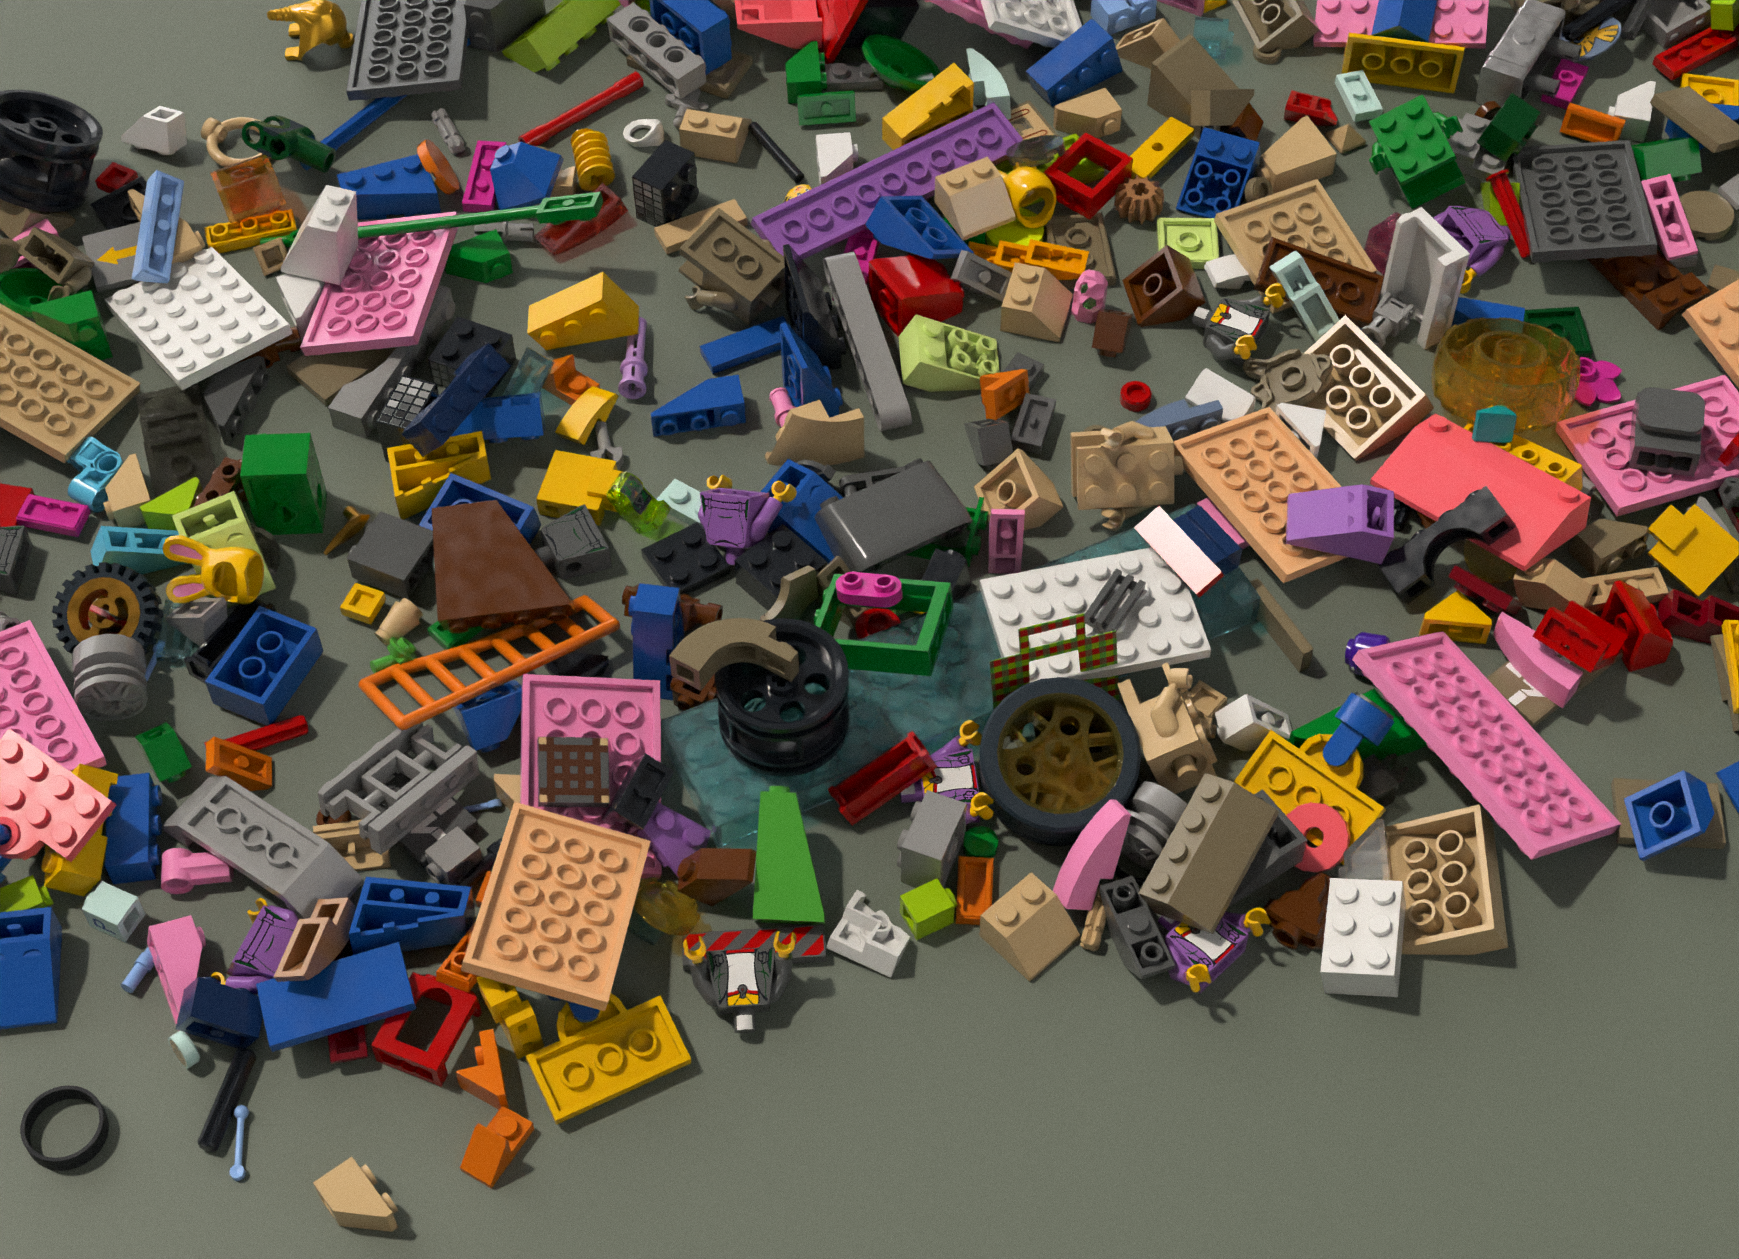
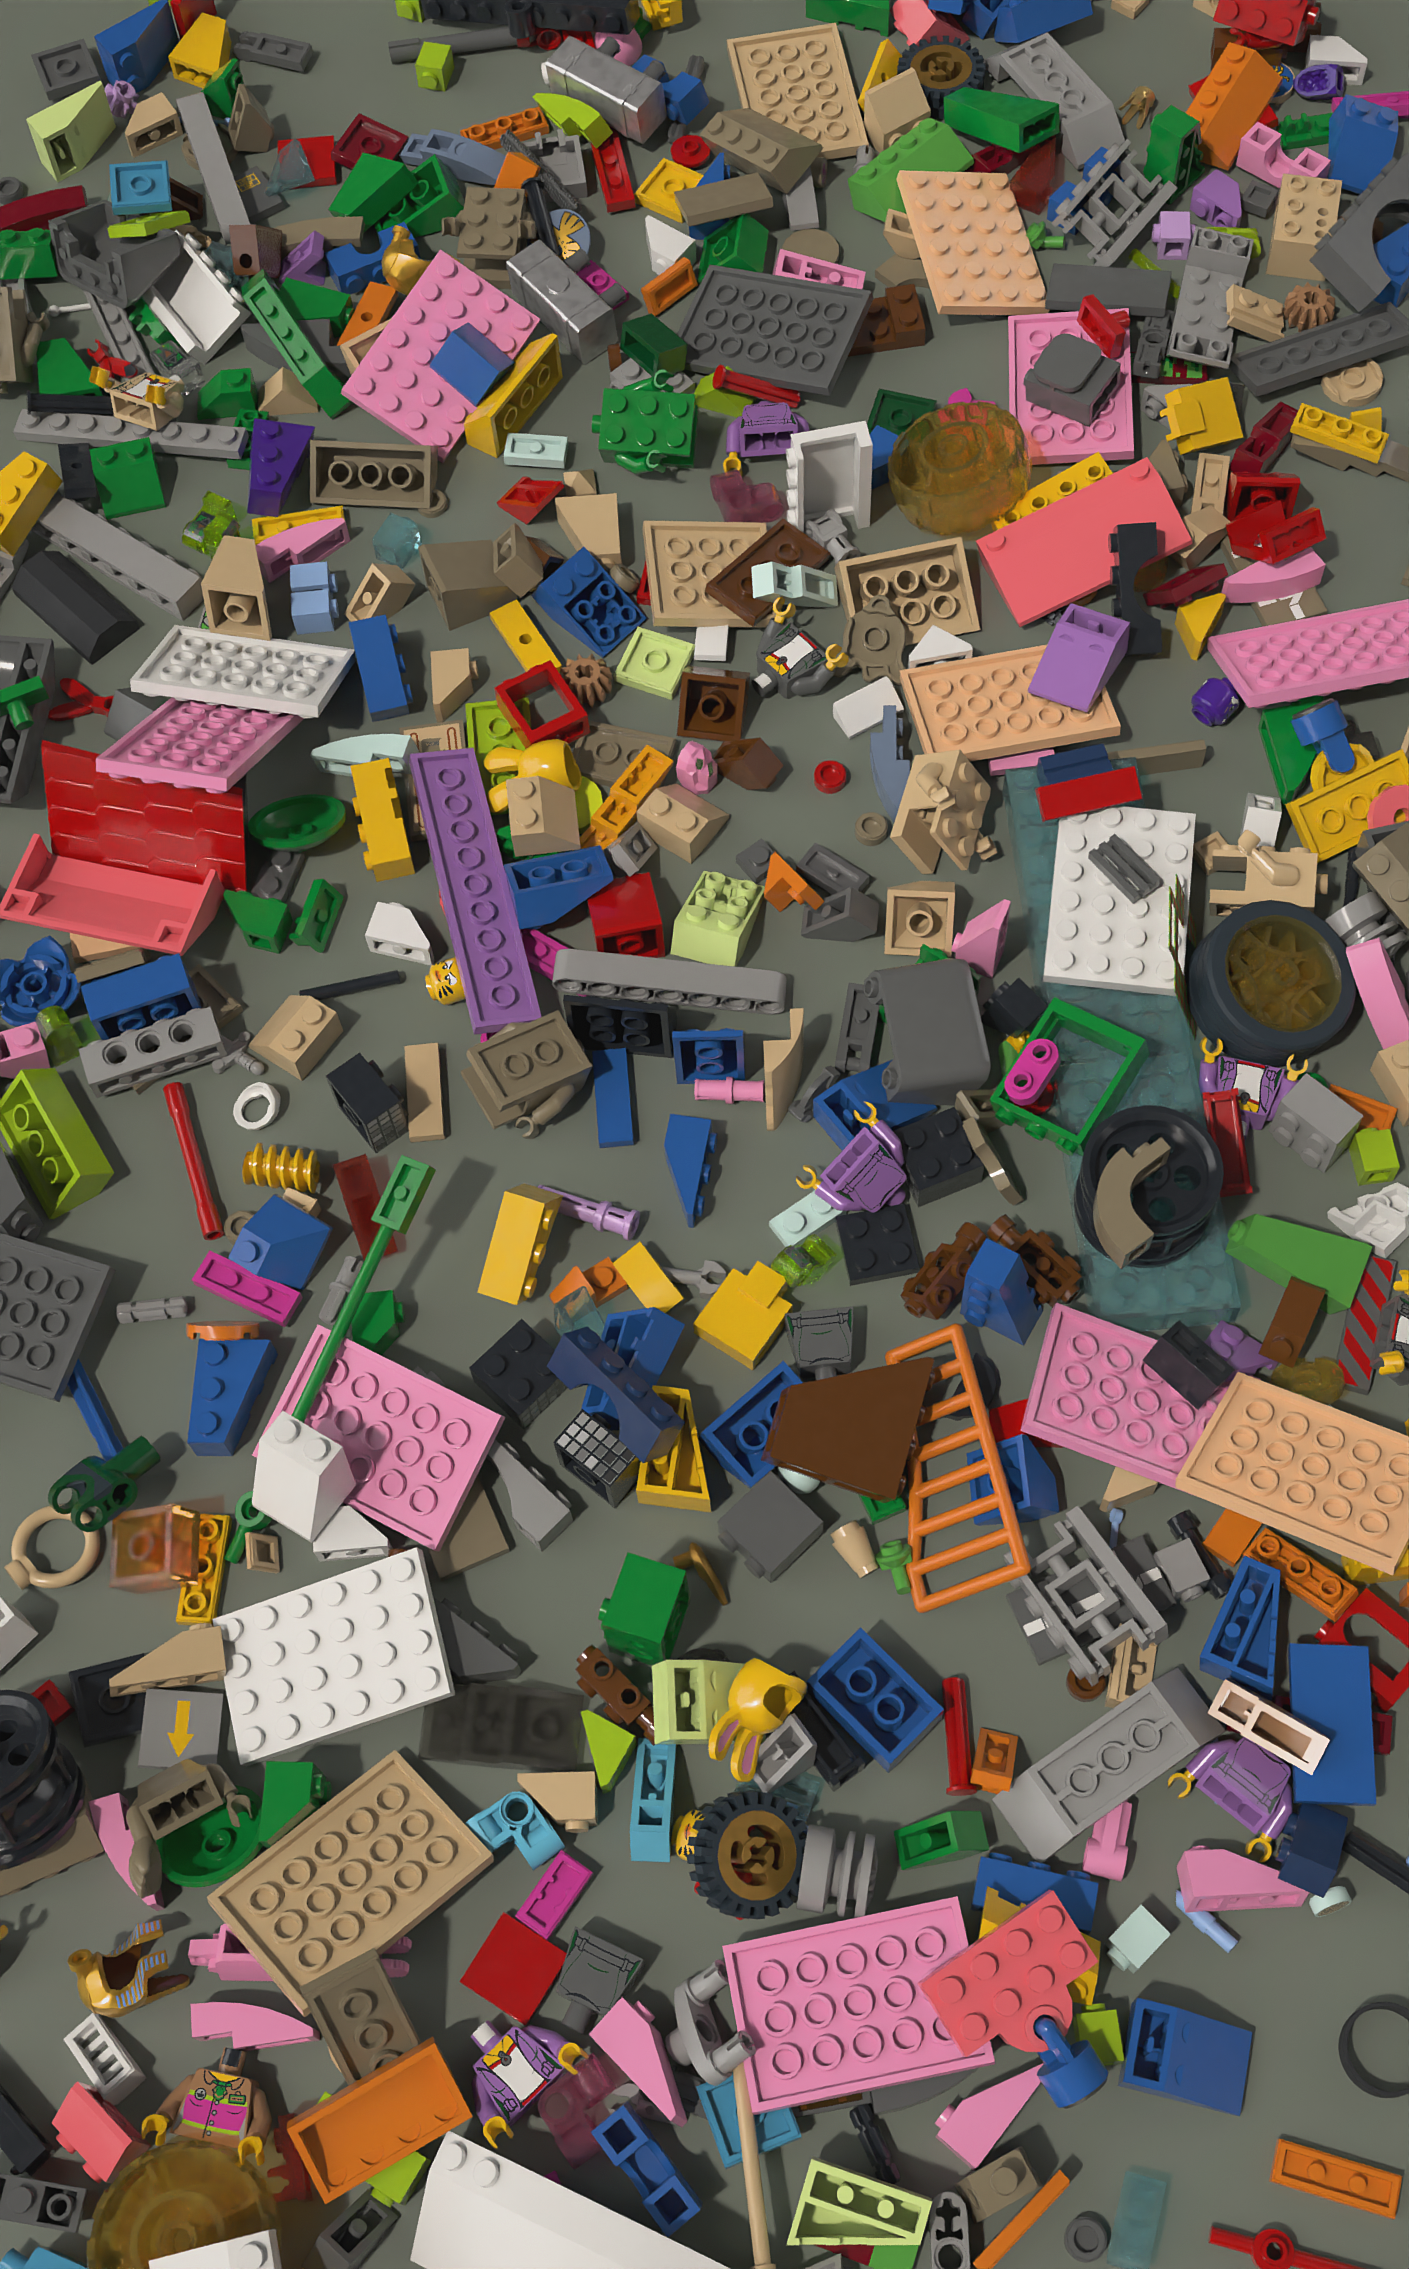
camera: 65 degrees left, 10 degrees up
(158, 228) = (182, 1667): light blue slope -> none
(363, 603) = (816, 1579): yellow plate -> none
(573, 772) = (1146, 1415): tile -> none
(1035, 150) = (499, 739): clear smoke plate -> none
(1494, 425) = (1029, 495): teal slope -> none

